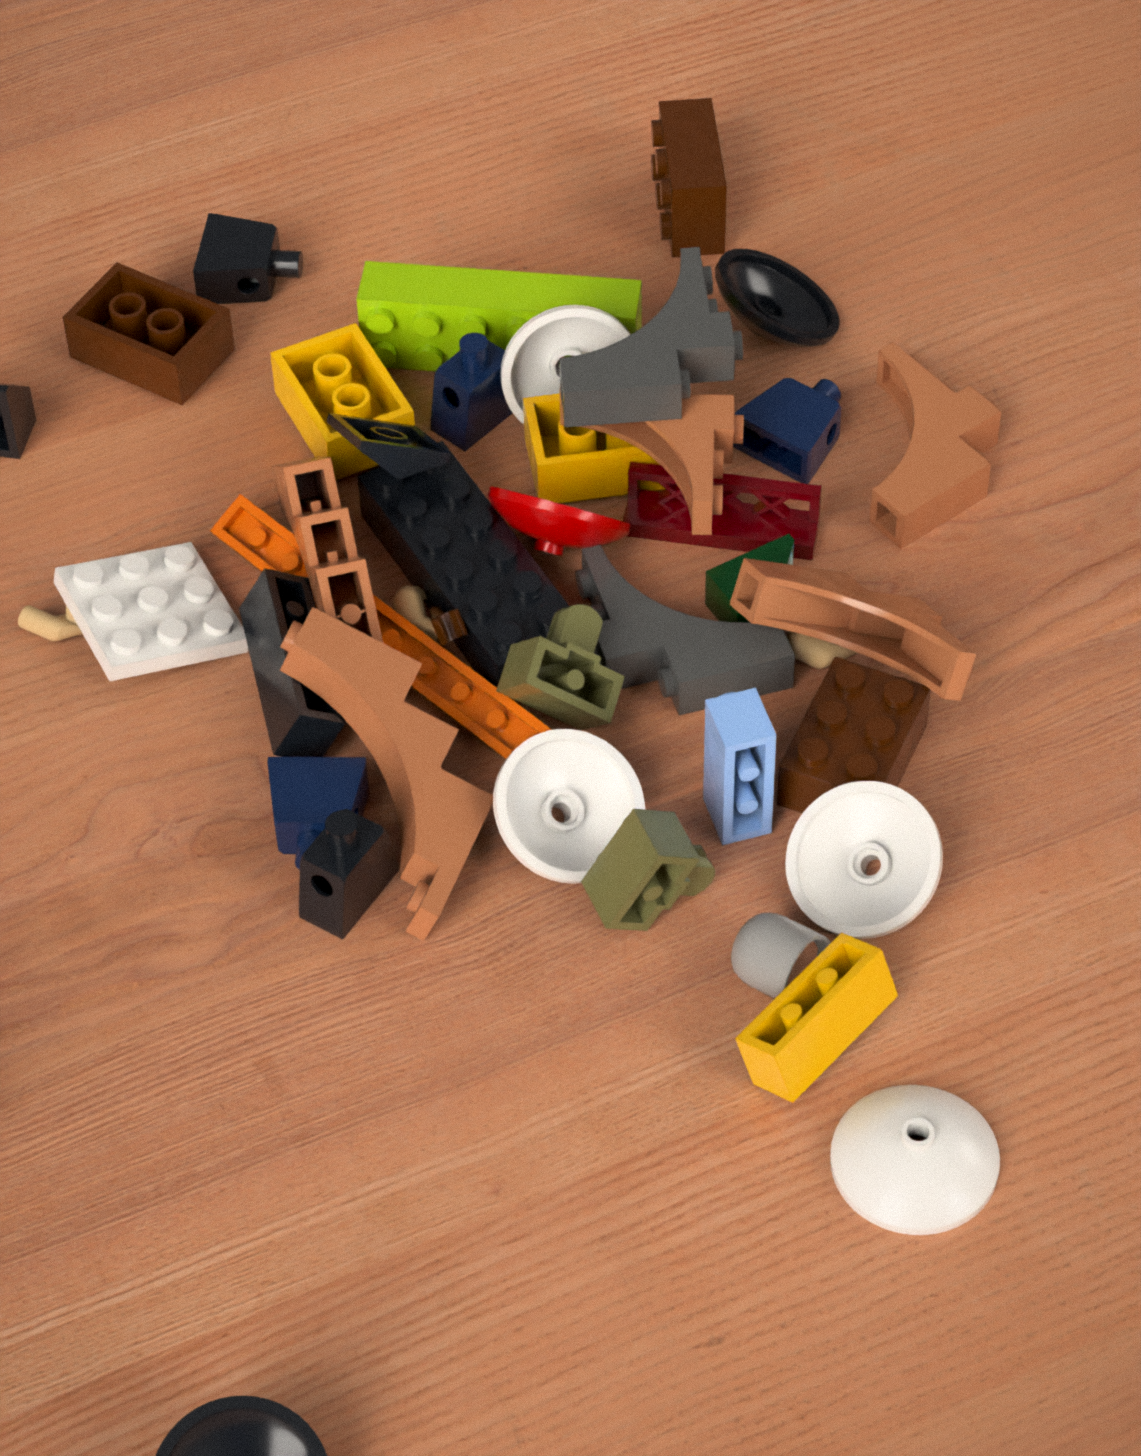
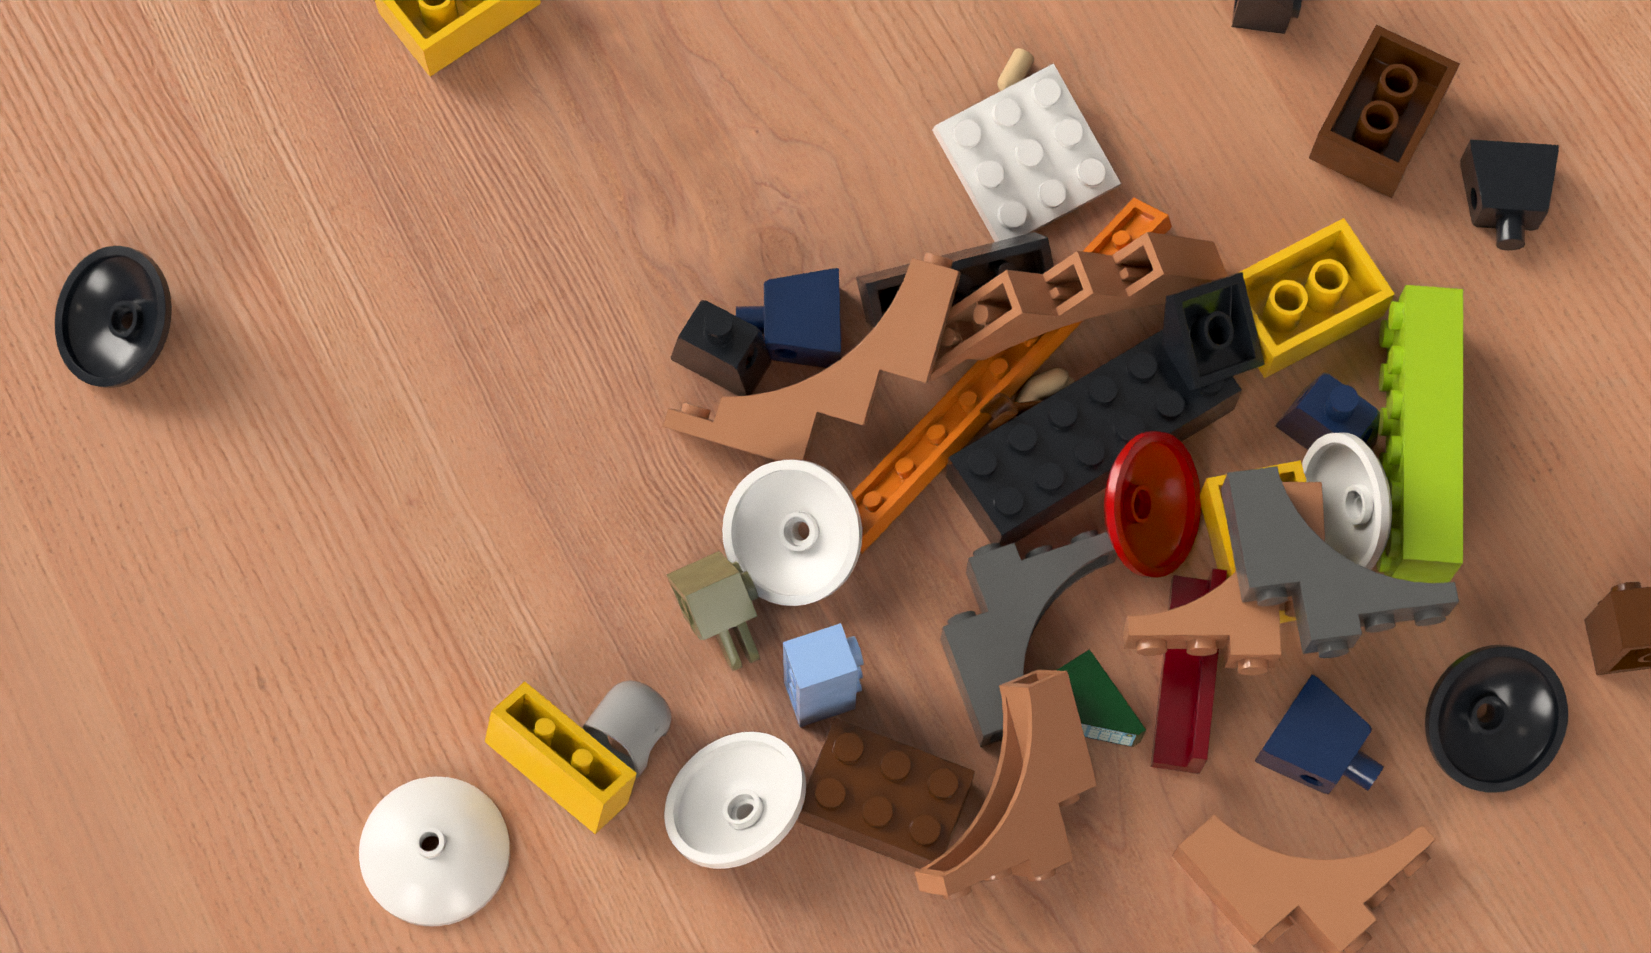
camera: 85 degrees right, 20 degrees up
(562, 672) = (938, 517): olive brick -> none

